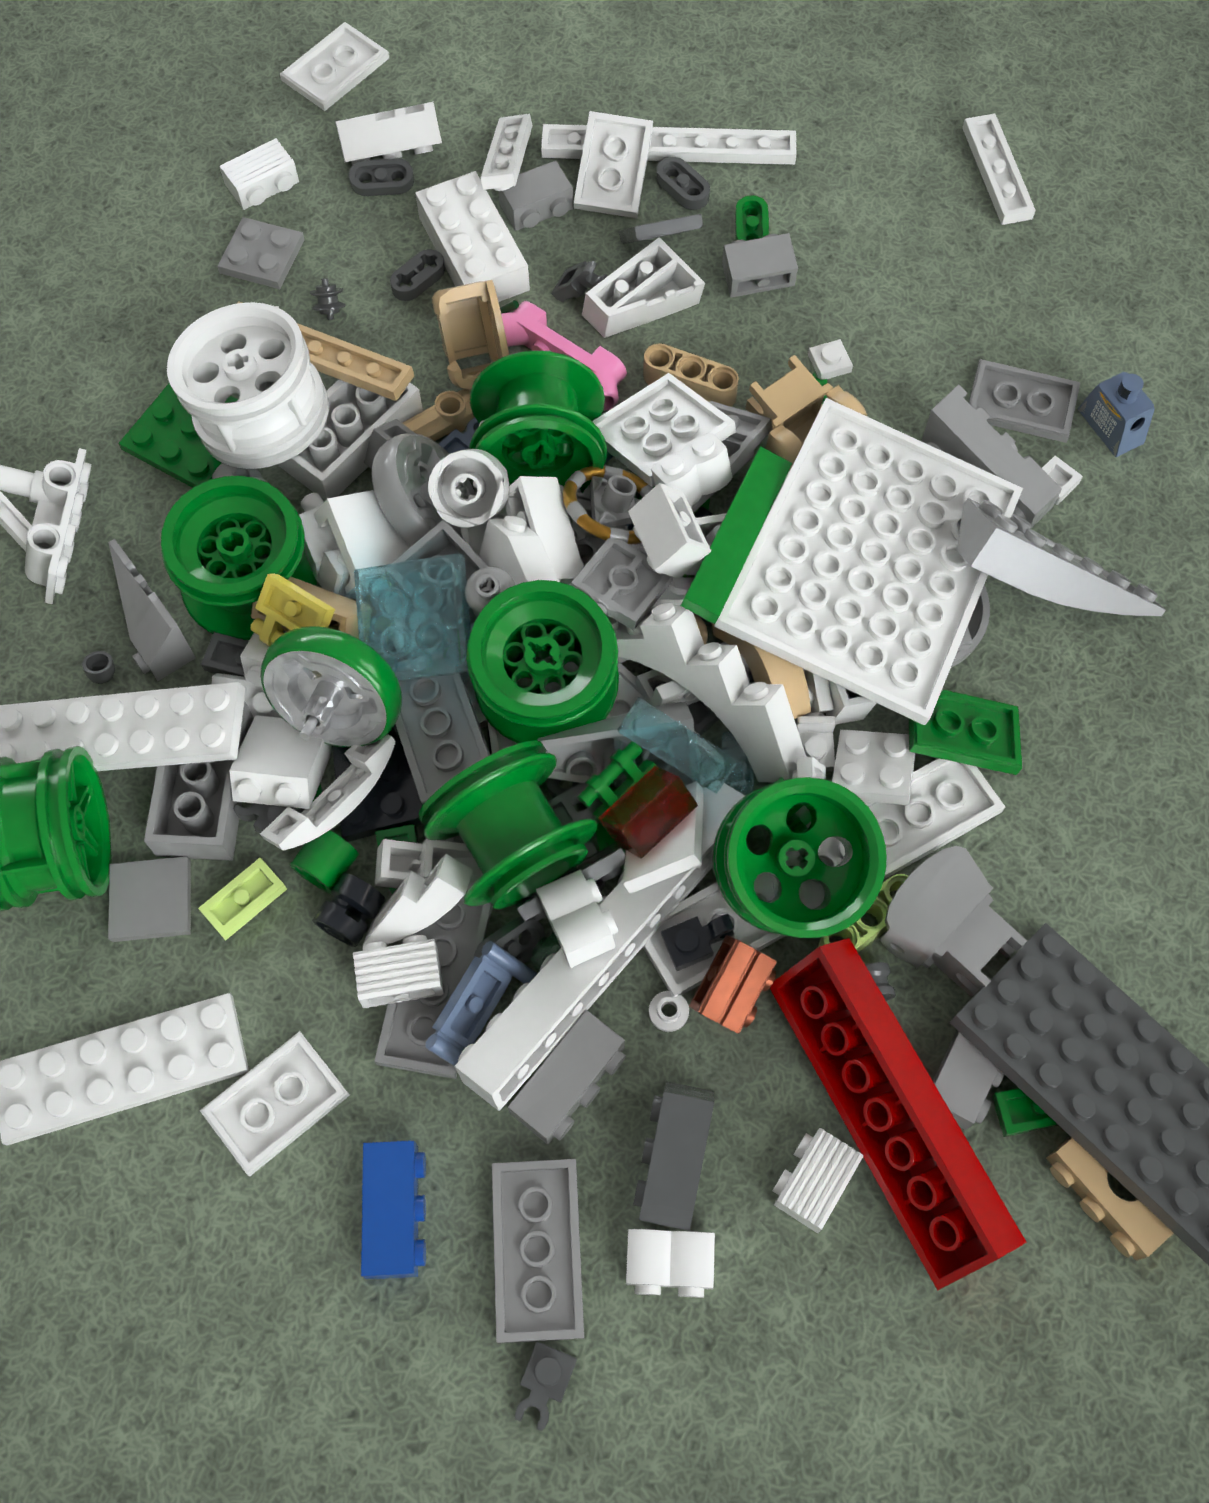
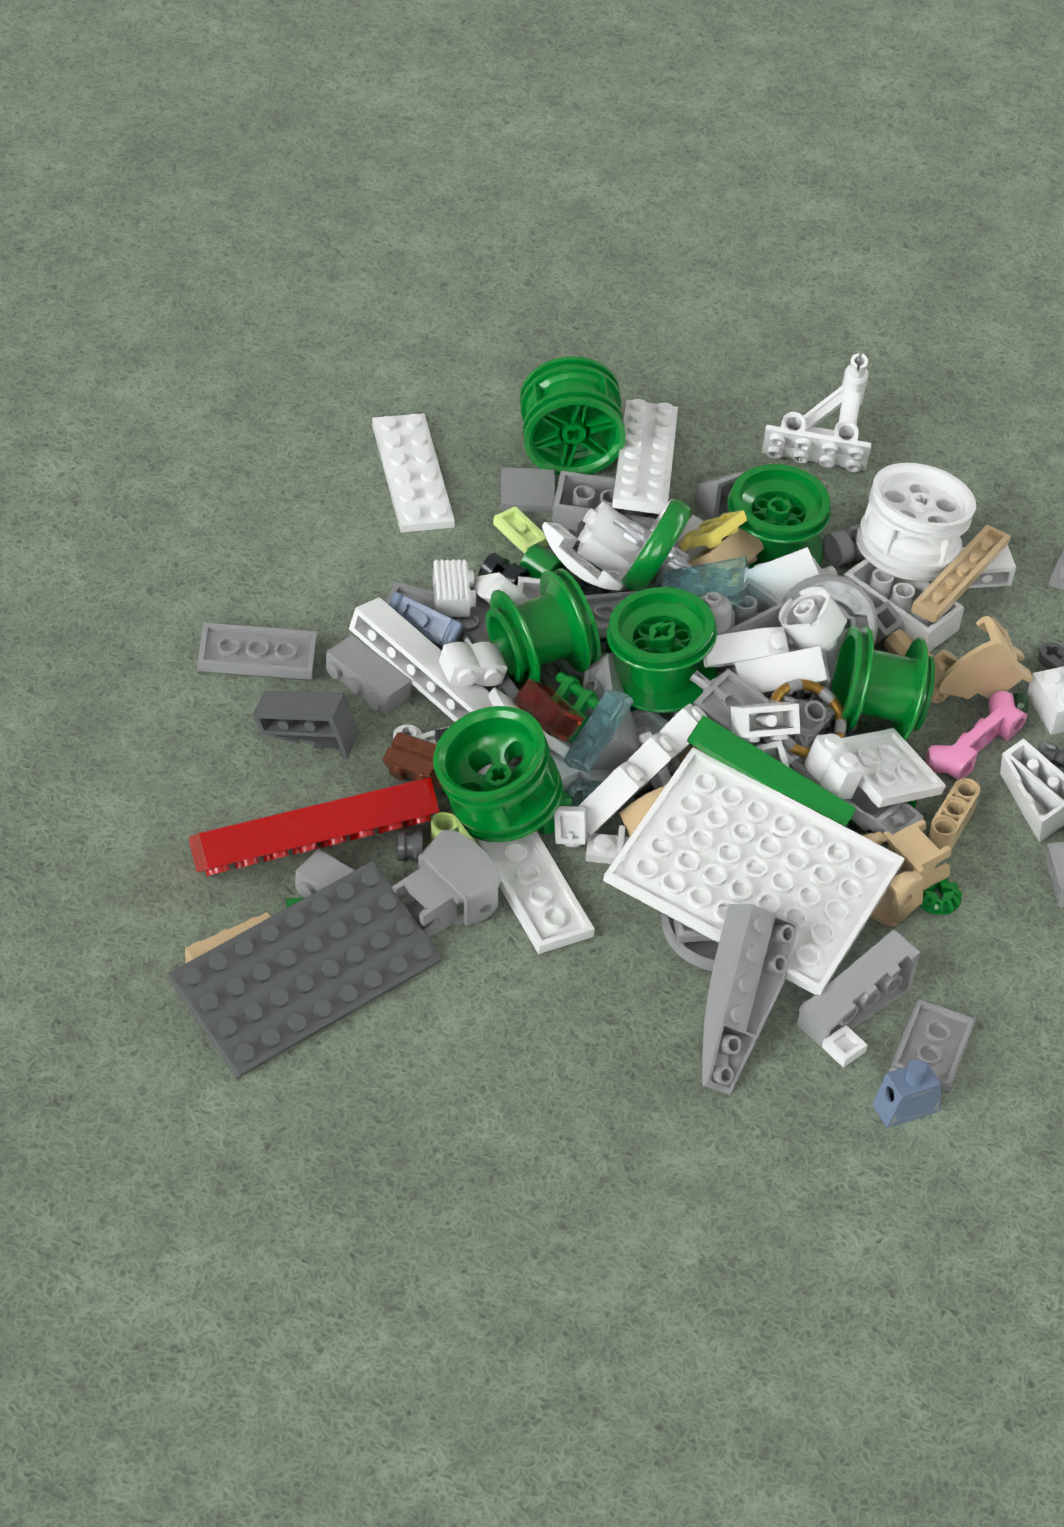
camera: 90 degrees right, 20 degrees down
(99, 667) = (708, 465): dark grey hinge -> none
(274, 1103) = (377, 540): white tile -> none
(327, 299) = (1031, 604): dark grey wheel -> none
(392, 1210) = (296, 583): blue brick -> none
(547, 1378) = (174, 650): dark grey plate -> none
(670, 1260) = (235, 712): white brick -> none
(817, 1180) = (272, 791): white brick -> none
(830, 359) = (976, 917): white plate -> none
(875, 766) = (580, 872): white plate -> none
(970, 733) = (607, 932): green tile -> none

